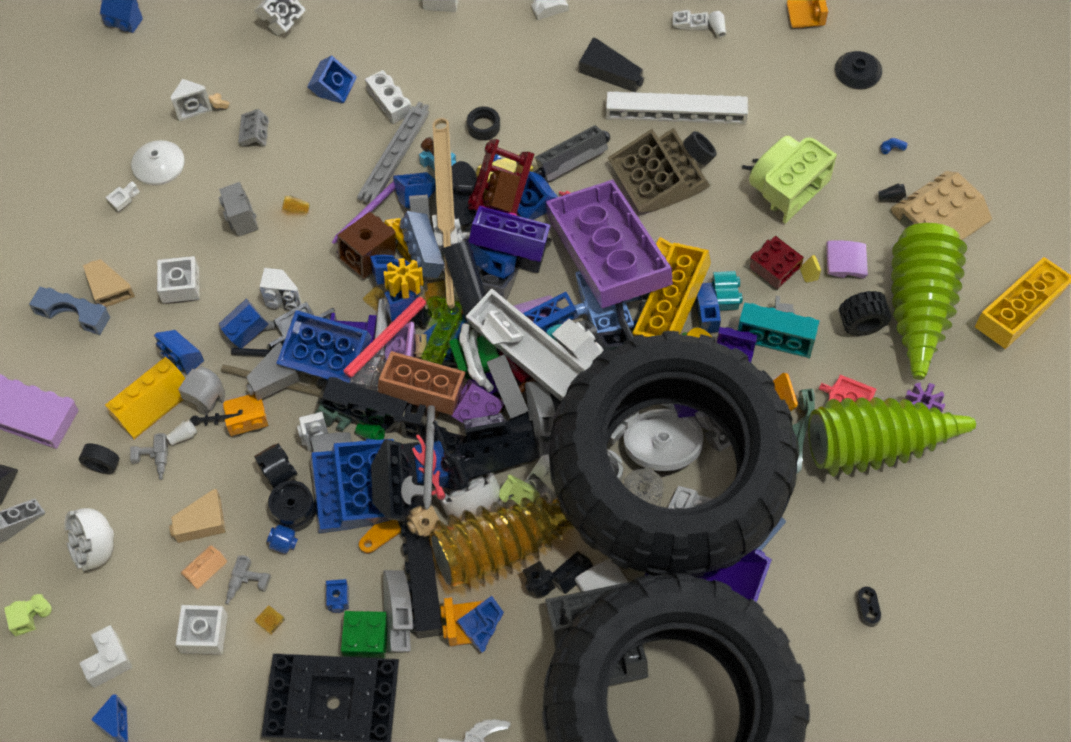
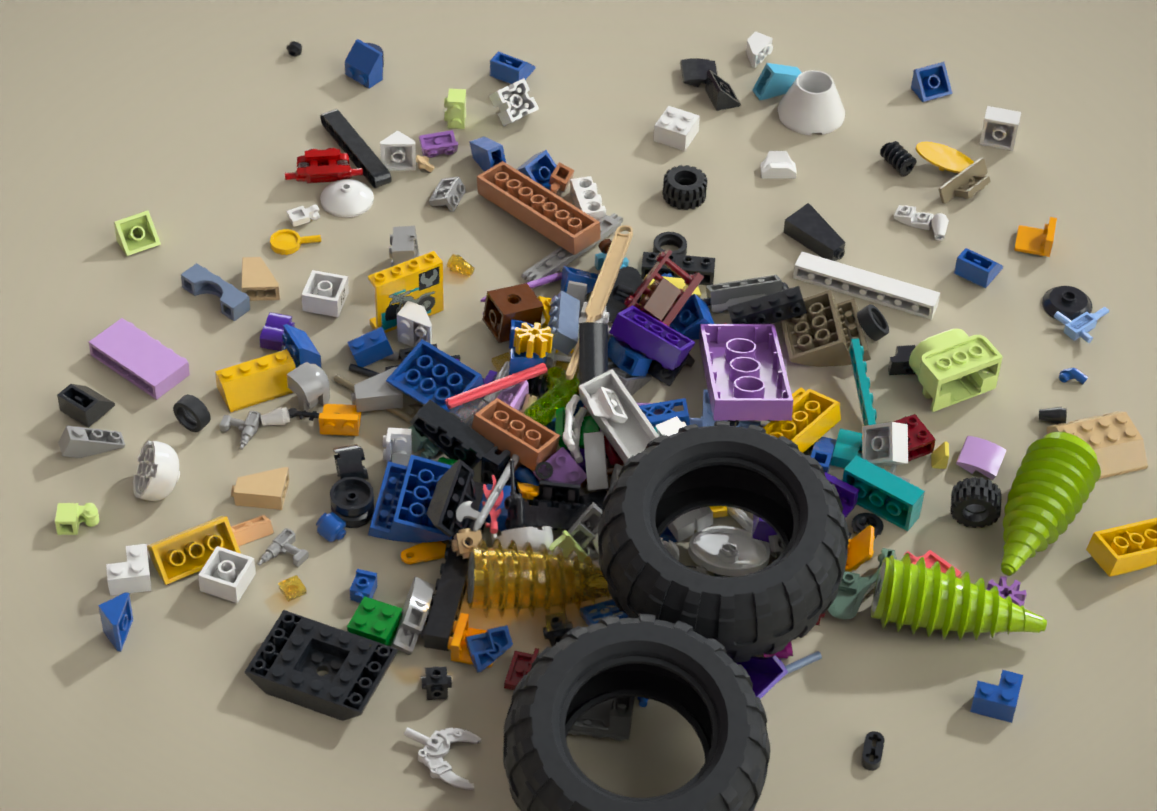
camera: 15 degrees right, 15 degrees down
(44, 11) = (294, 48): none -> black plate
(119, 230) = (288, 241): none -> yellow piece
(123, 137) = (323, 167): none -> red piece
(143, 336) = (272, 331): none -> dark purple brick
(146, 105) = (356, 148): none -> black beam
(156, 610) = (191, 549): none -> yellow slope
(223, 76) = (438, 143): none -> medium lavender bracket
(227, 32) = (456, 108): none -> yellowish green brick
(264, 247) = (413, 281): none -> yellow panel
(279, 77) = (487, 152): none -> blue slope
(347, 120) = (538, 208): none -> nougat brick
(355, 81) = (560, 178): none -> nougat brick
(448, 422) = (526, 475): none -> blue cone
(450, 685) = (436, 683): none -> black brick
(455, 438) = (527, 490): none -> light orange piece
(457, 410) = (540, 475): none -> black bush
(473, 43) = (684, 187): none -> black tyre
(512, 139) = (689, 264): none -> black brick
(521, 635) = (519, 667): none -> dark red bracket
(525, 459) = (586, 526): none -> light grey slope
(572, 550) = (593, 613): none -> blue piece
(601, 165) = (769, 308): none -> black brick
(717, 221) = (862, 383): none -> teal plate
(739, 178) = (900, 362): none -> black brick
(763, 279) = (885, 444): none -> white brick
(768, 58) = (976, 268): none -> blue slope
(778, 360) = (859, 522): none -> black gear
(880, 88) = (1081, 324): none -> light blue piece
(962, 513) = (998, 700): none -> blue brick

